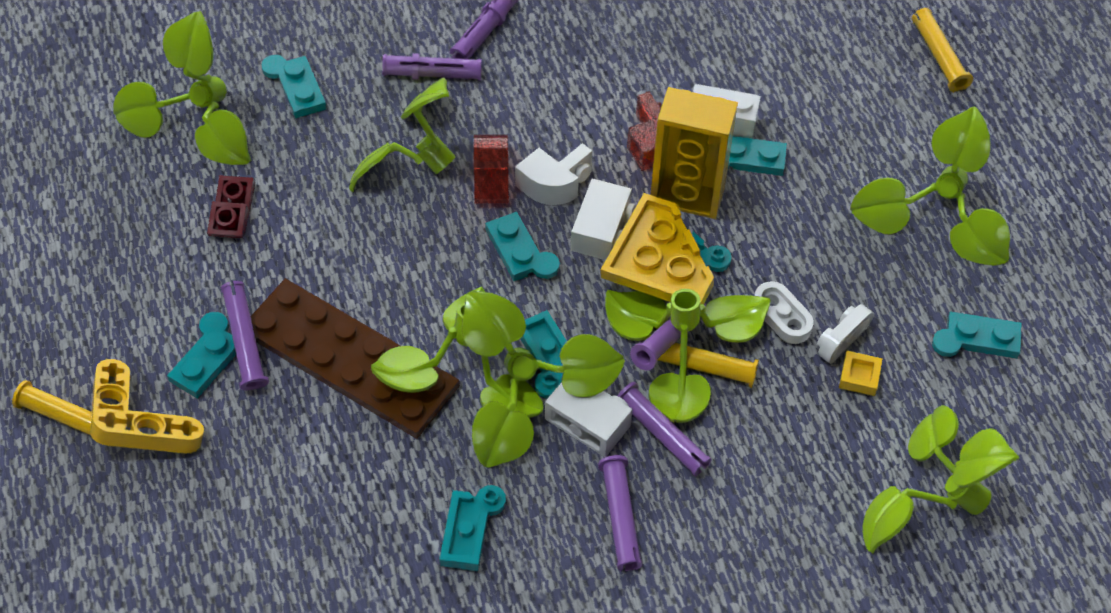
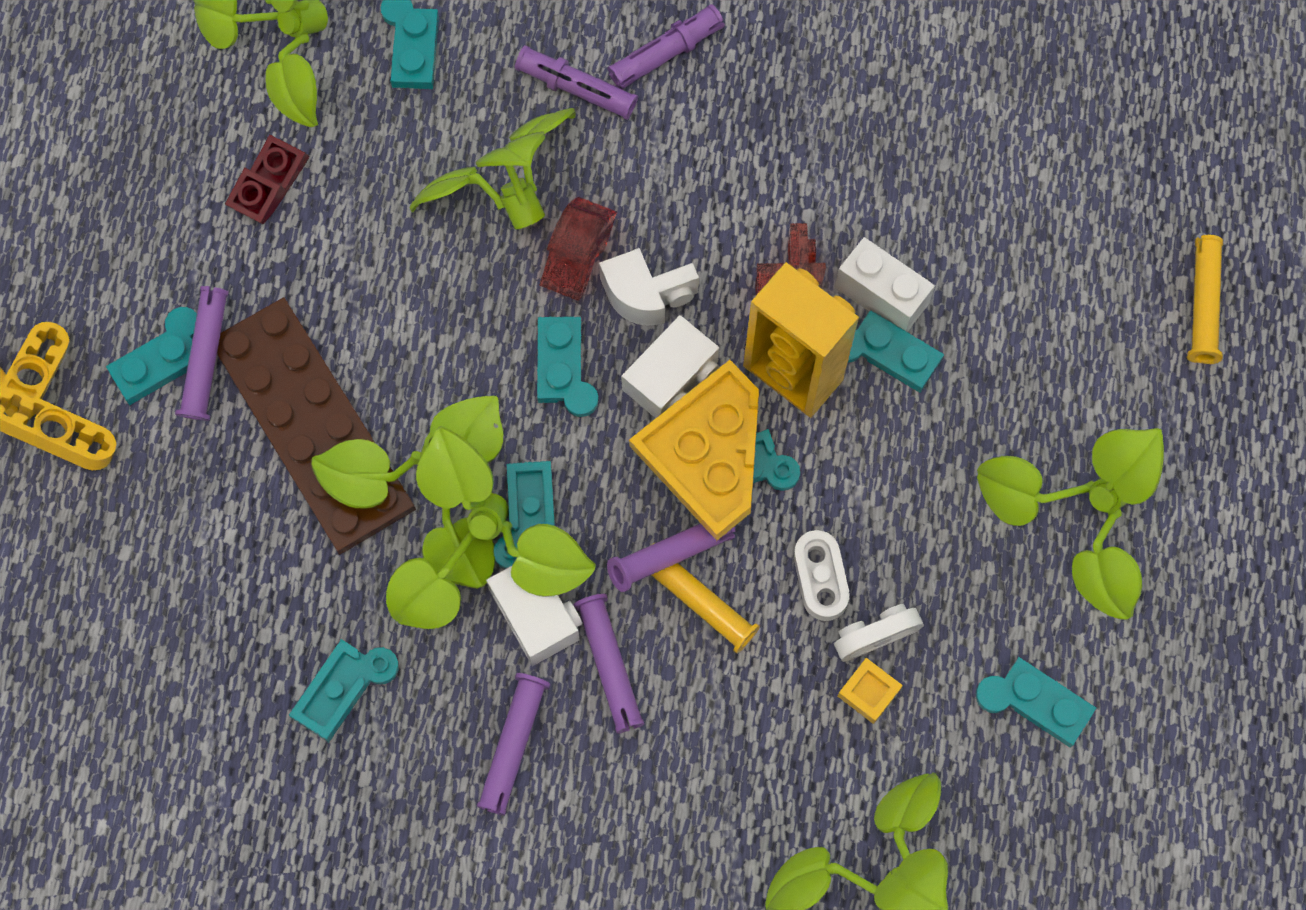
camera: 25 degrees right, 15 degrees up
(637, 314) = (757, 567): lime plant -> none

